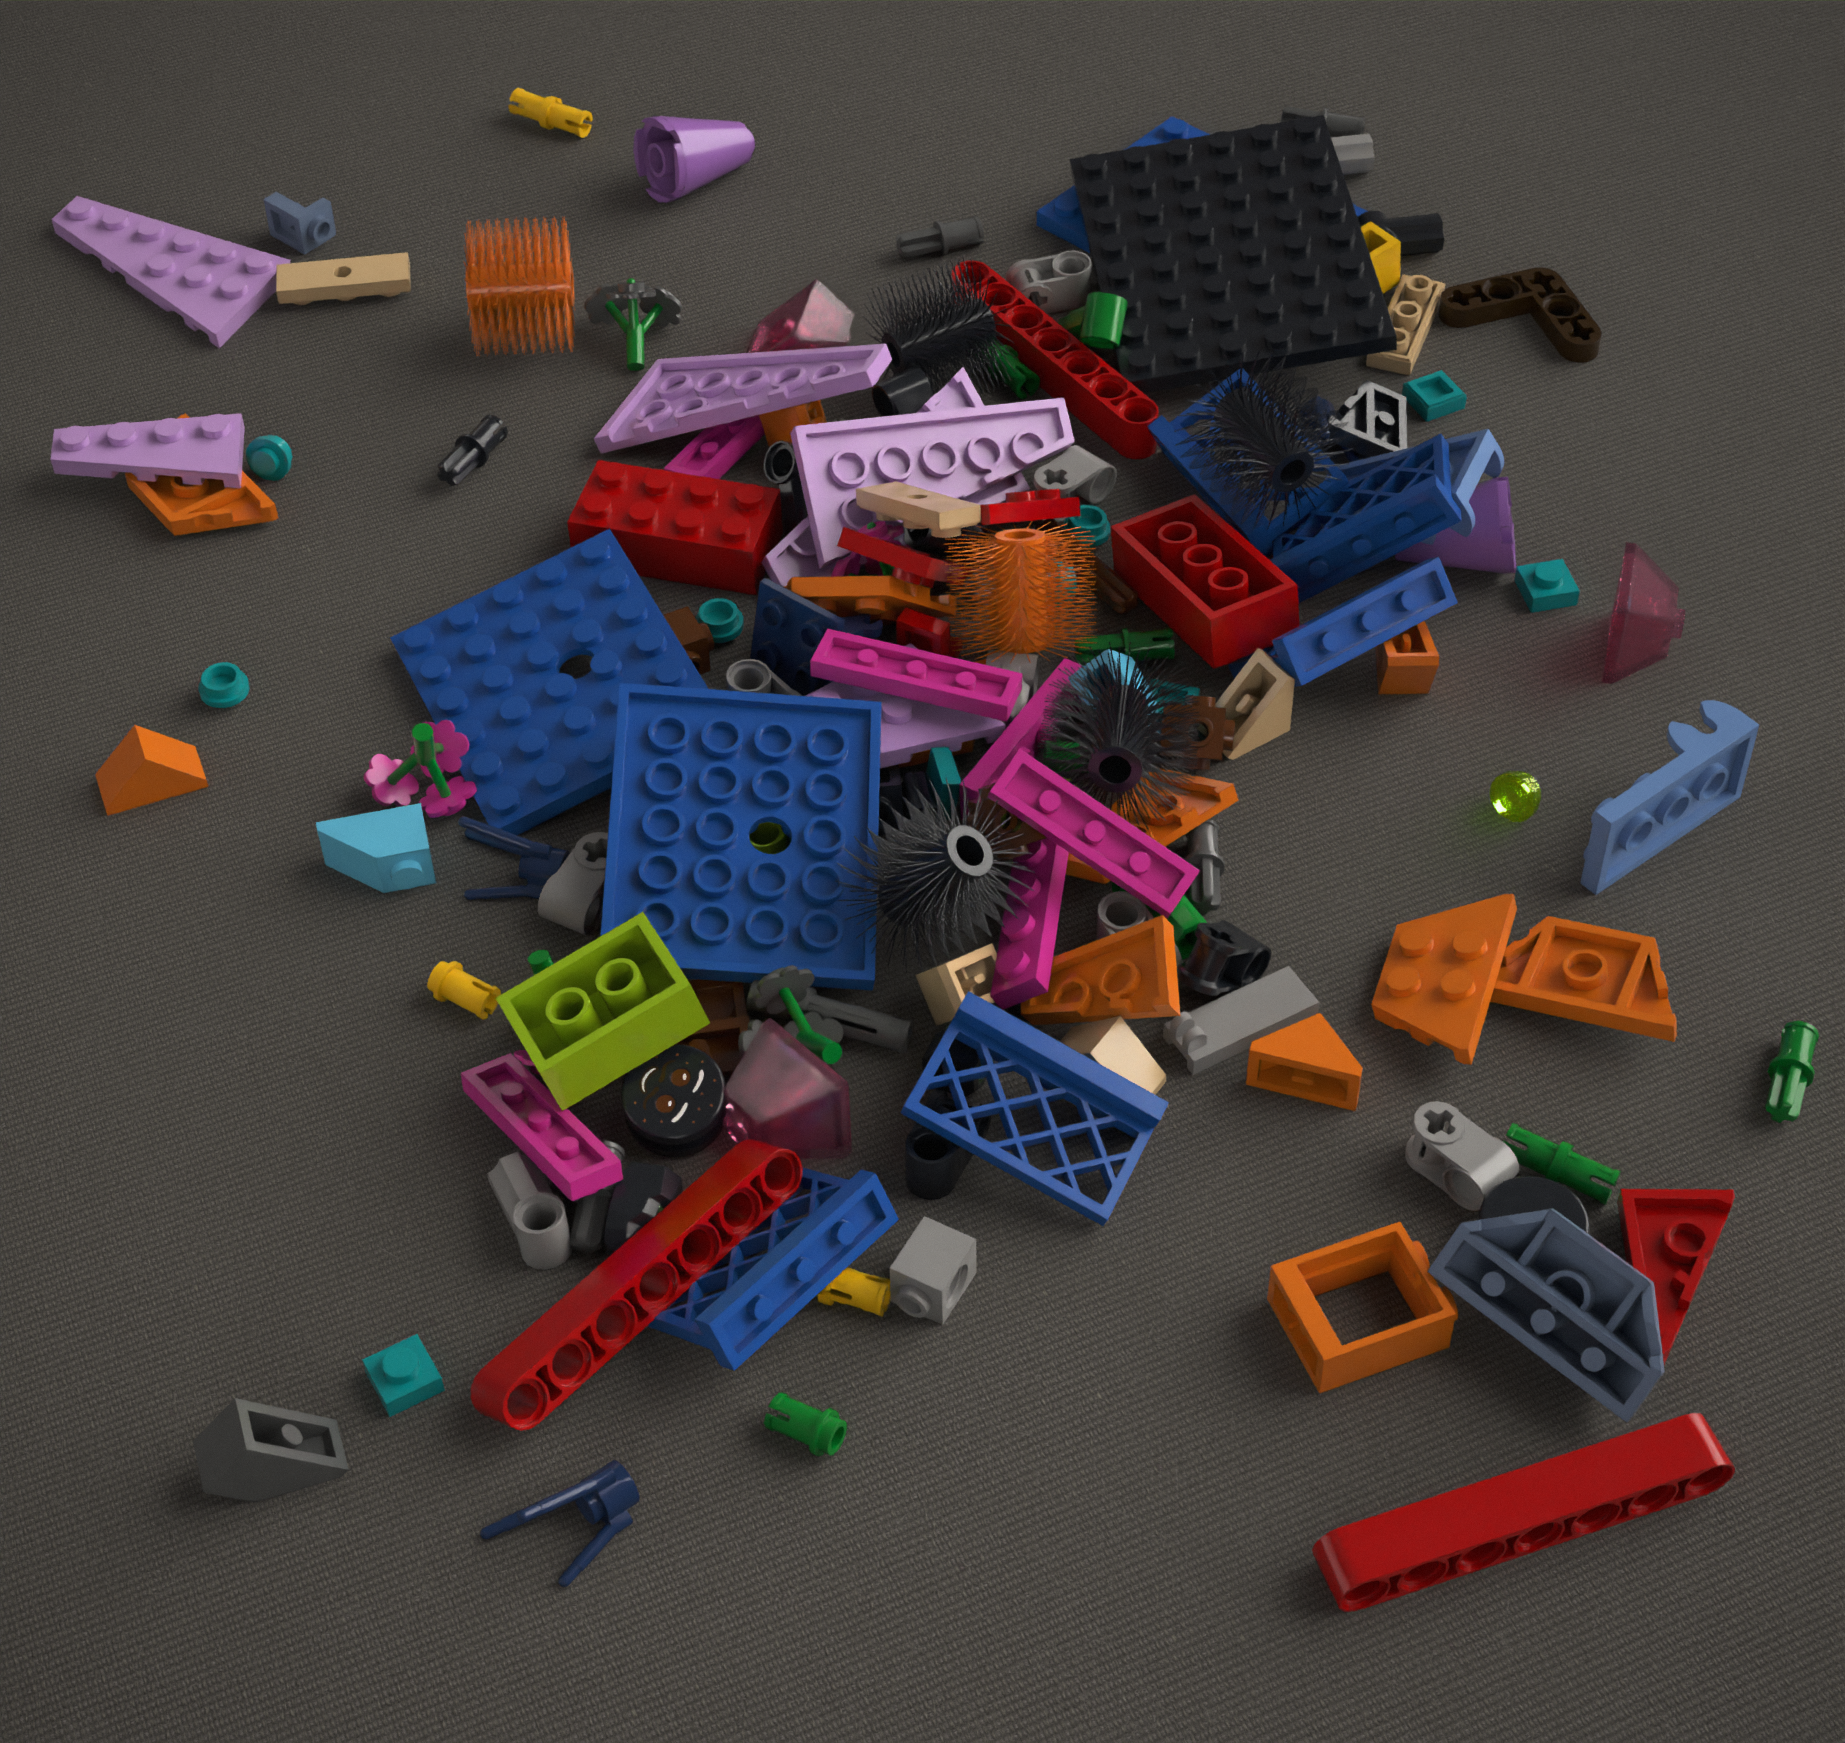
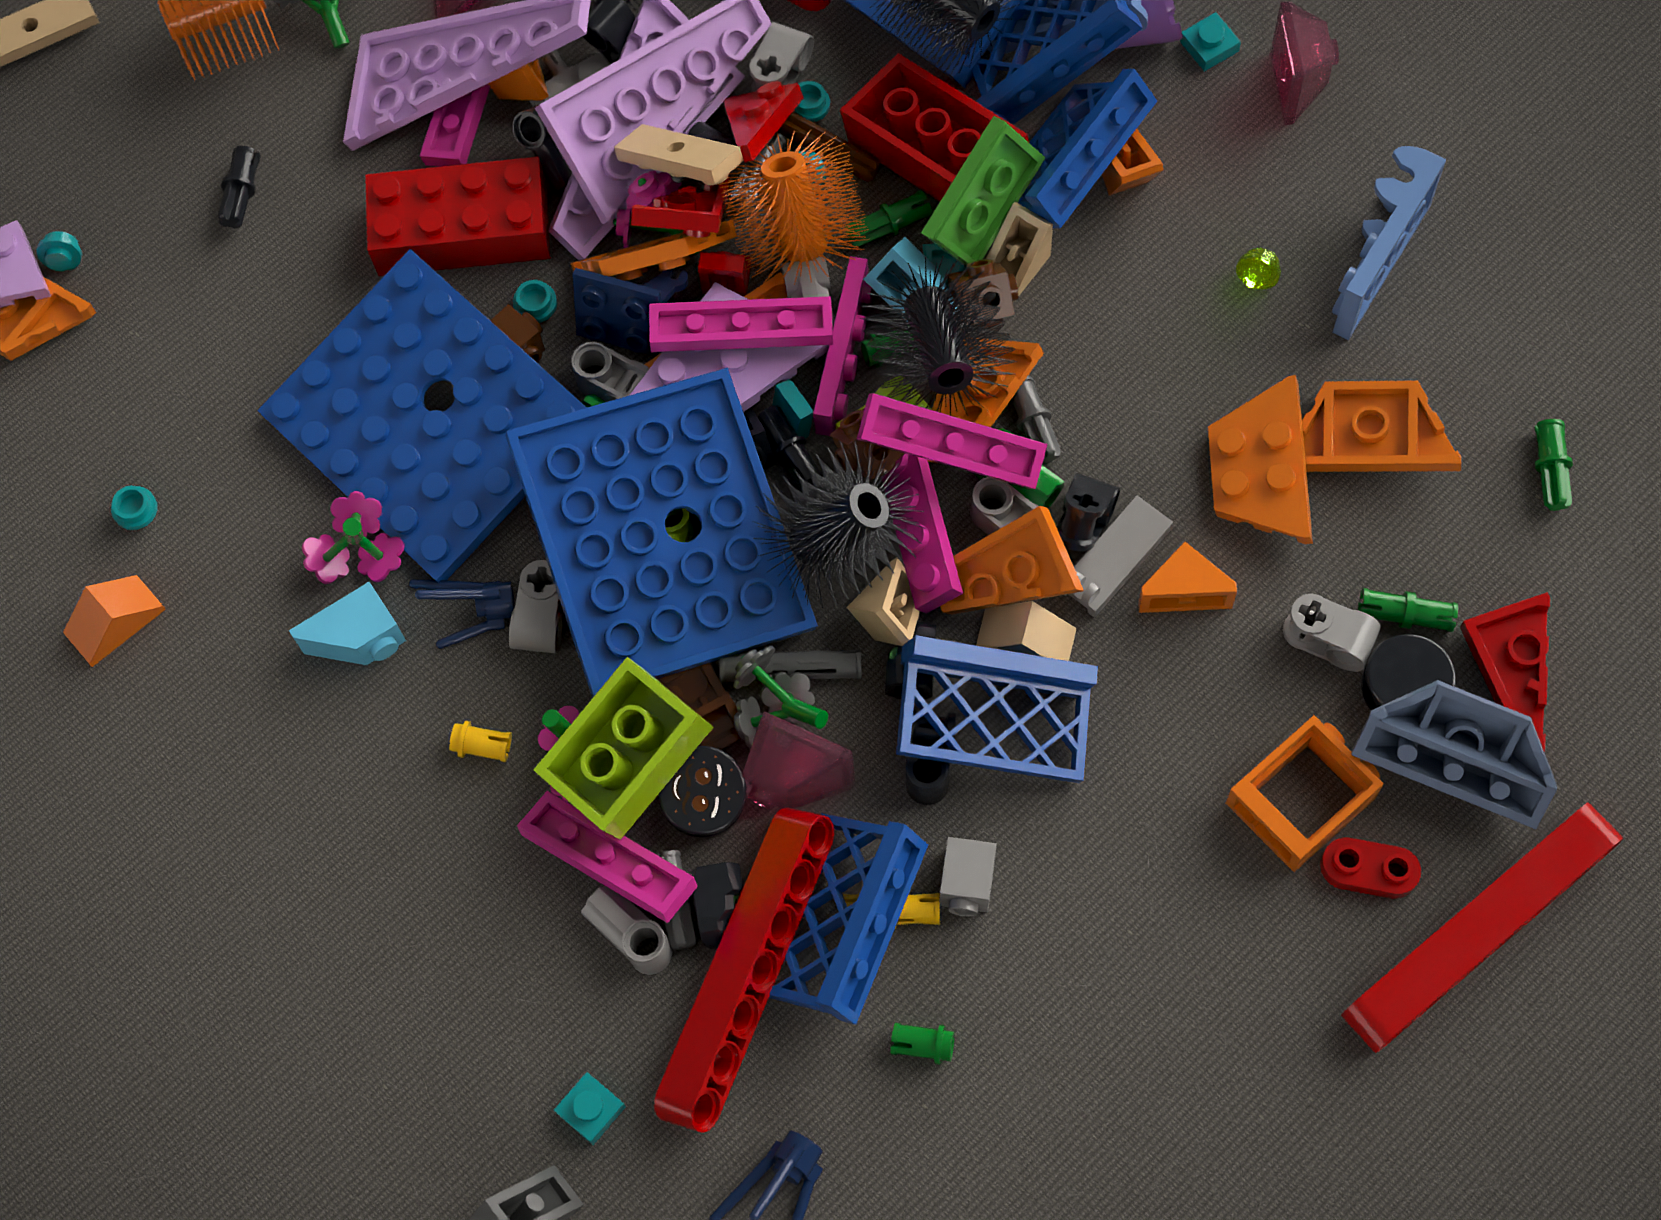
camera: 15 degrees left, 20 degrees up
(1227, 622) = (983, 193): none -> bright green tile
(1410, 1412) = (1371, 869): none -> red plate

